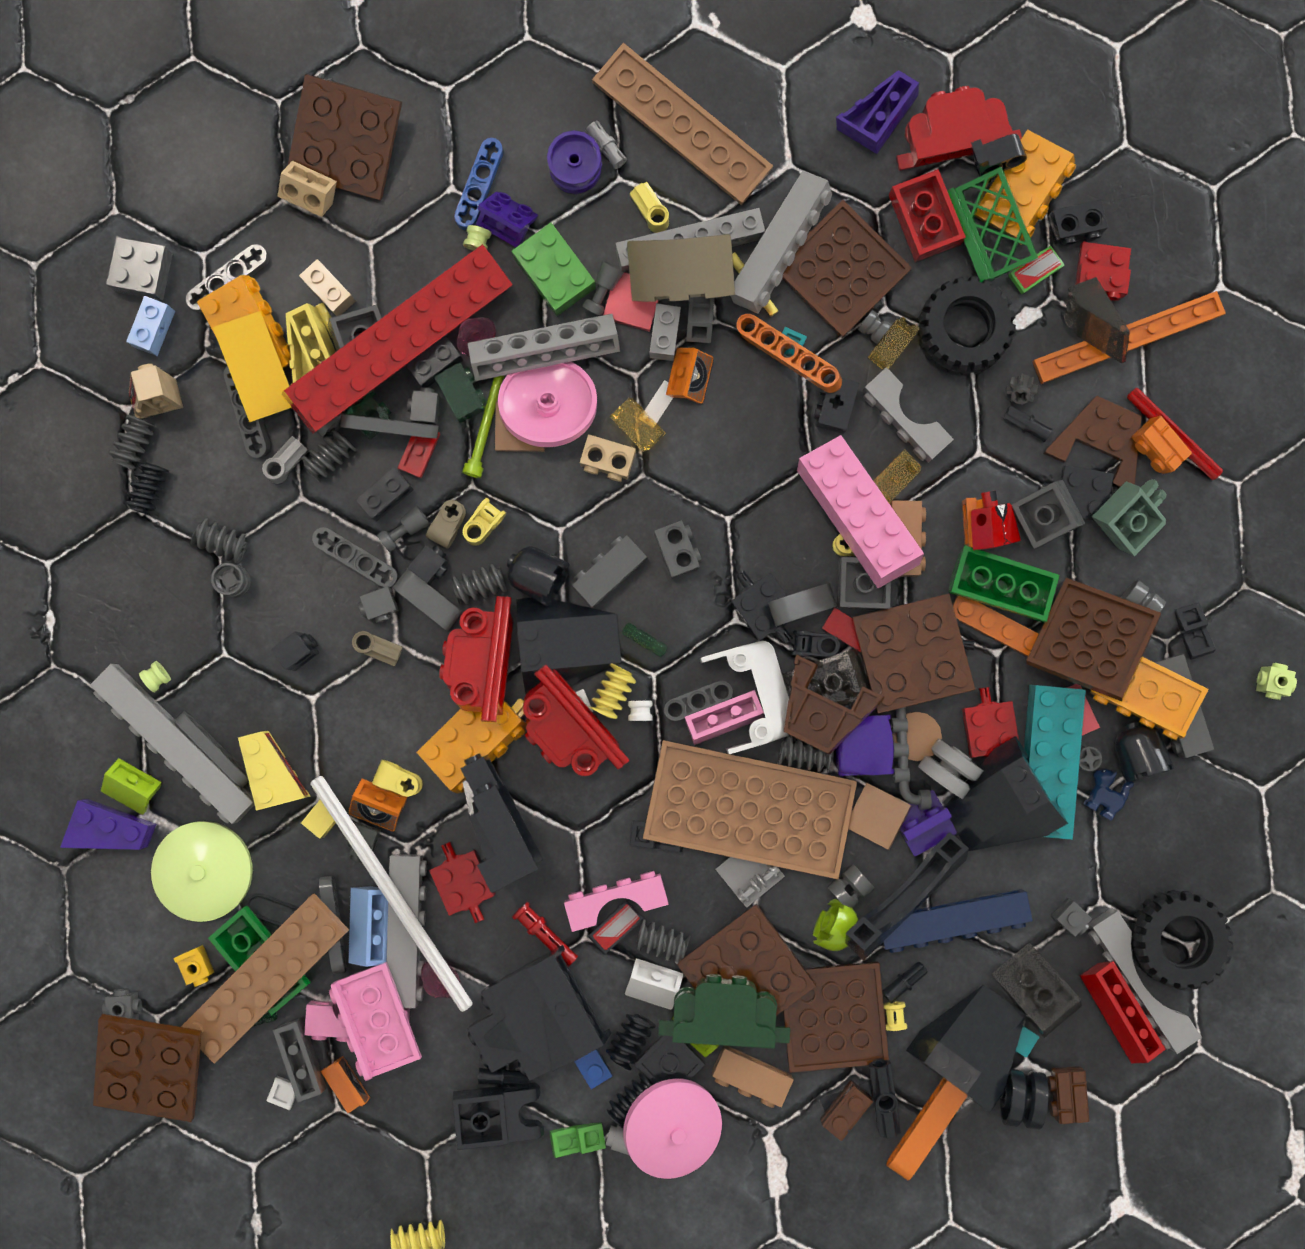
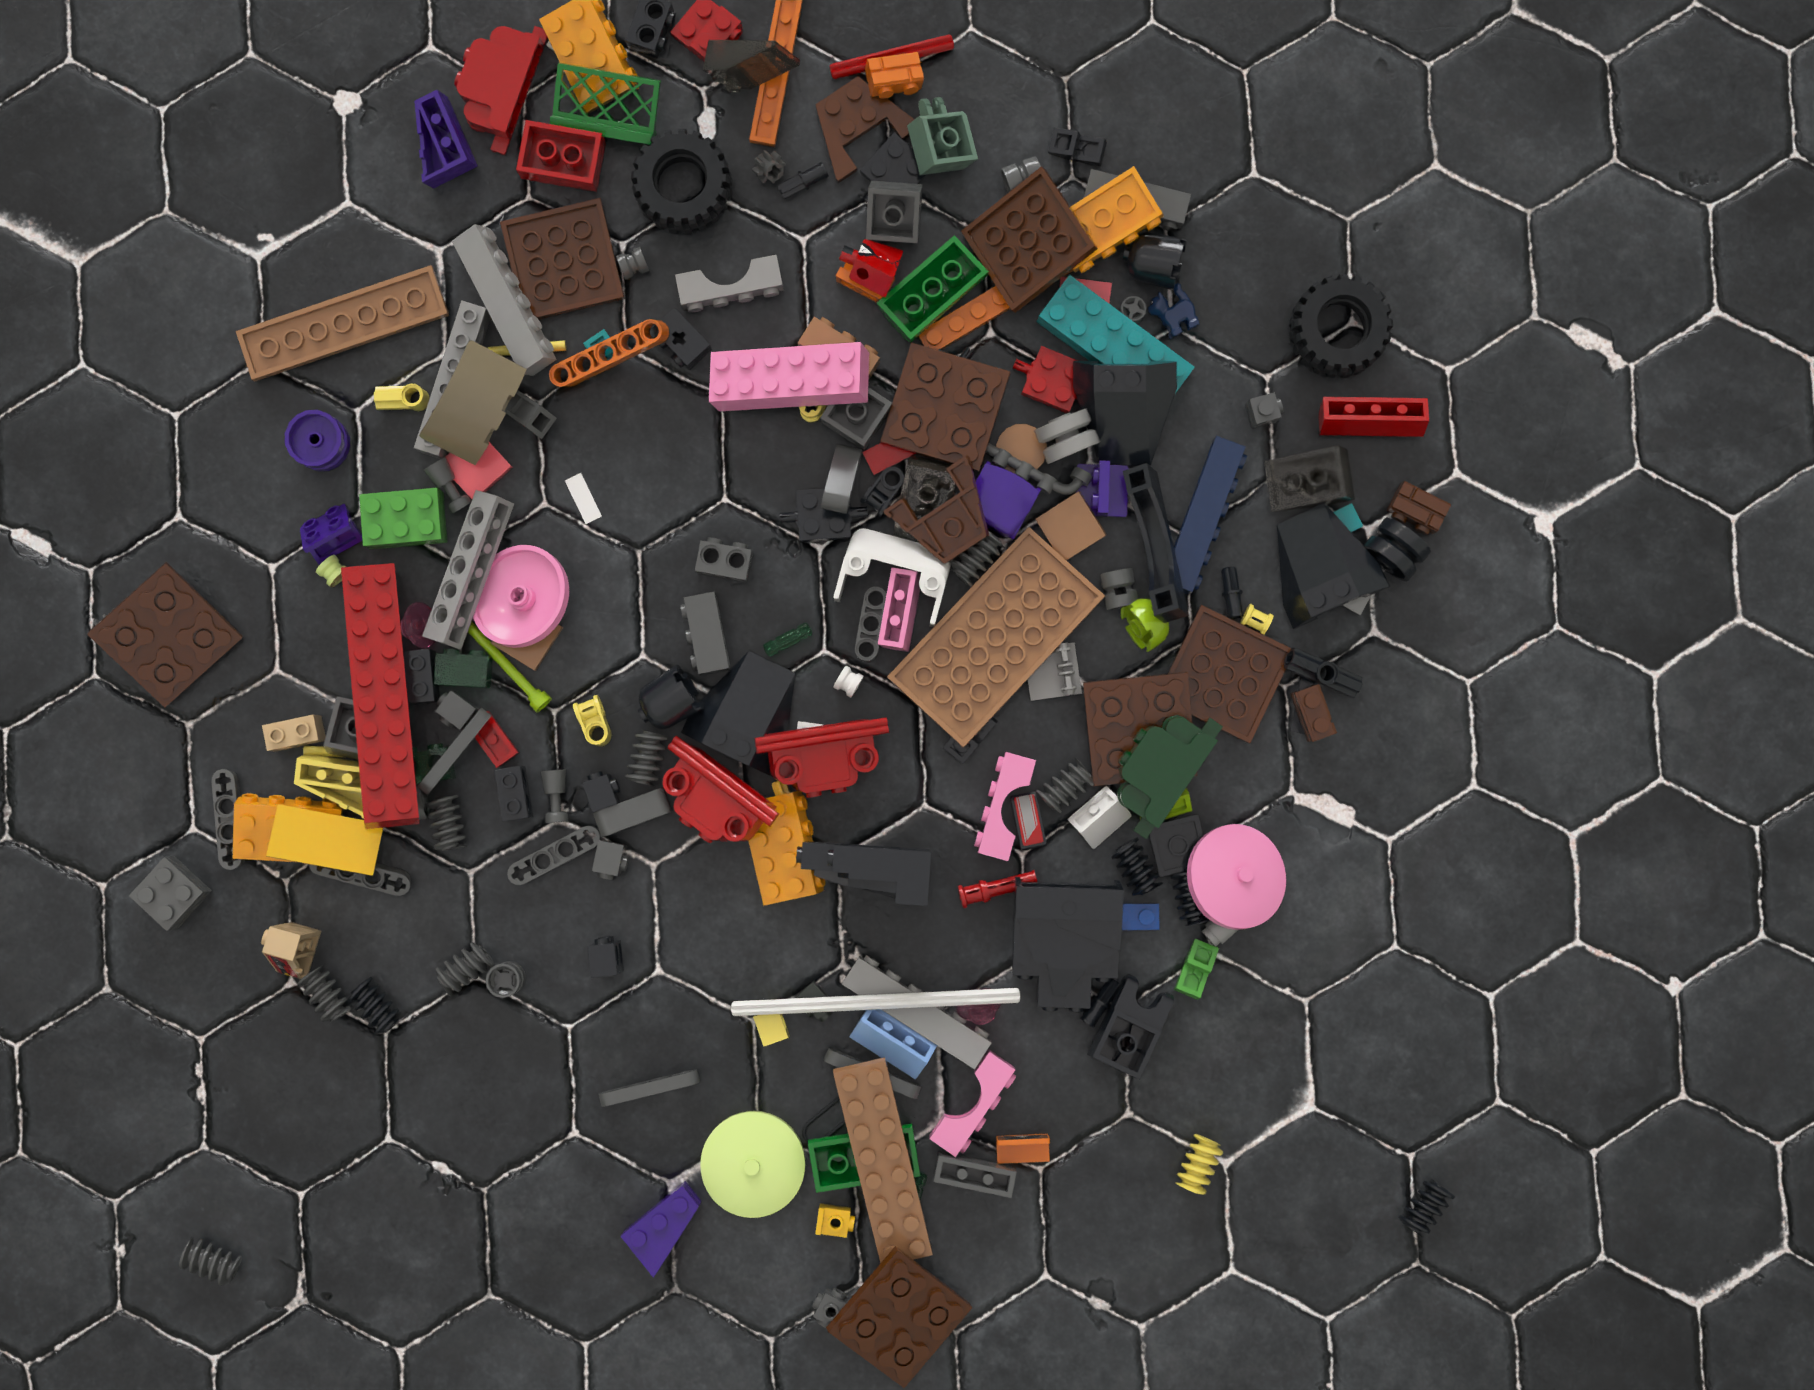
camera: 55 degrees left, 0 degrees up
(129, 786) = (636, 1183): lime panel -> none
(150, 326) = (229, 914): light blue brick -> none
(154, 676) = (551, 1101): yellowish green wheel -> none
(165, 737) = (621, 1120): light grey brick -> none
(268, 772) = (700, 1049): light yellow wedge -> none
(282, 1093) = (996, 1209): white tile -> none
(287, 457) = (426, 862): light grey piece -> none
(306, 188) = (191, 697): tan brick -> none
(374, 1021) = (980, 1084): bright pink bracket -> none
(377, 805) = (789, 969): orange panel -> none
(379, 648) = (650, 882): dark tan piece -> none
(393, 778) = (774, 940): light yellow piece -> none
(443, 528) = (575, 758): dark tan piece -> none
(461, 882) = (905, 934): red plate -> none
(475, 182) = (279, 542): blue beam -> none
(606, 144) = (319, 402): light grey pin -> none
(610, 451) = (599, 568): tan brick -> none
(613, 692) = (816, 695): light yellow piece -> none
(637, 424) = (590, 528): clear yellow hinge -> none
(664, 332) = (522, 453): light grey brick -> none
(689, 374) = (573, 454): orange panel -> none
(752, 1076) = (1234, 779): medium nougat brick -> none
(893, 343) = (657, 256): clear yellow hinge -> none
(897, 475) = (778, 323): clear yellow hinge -> none
(926, 1129) = (1372, 651): orange beam -> none
(1002, 152) = (546, 53): black tile -> none
(1036, 271) = (671, 88): slope -> none
(1115, 938) = (1305, 383): light grey arch -> none
(1268, 681) = (1162, 110): yellowish green brick -> none

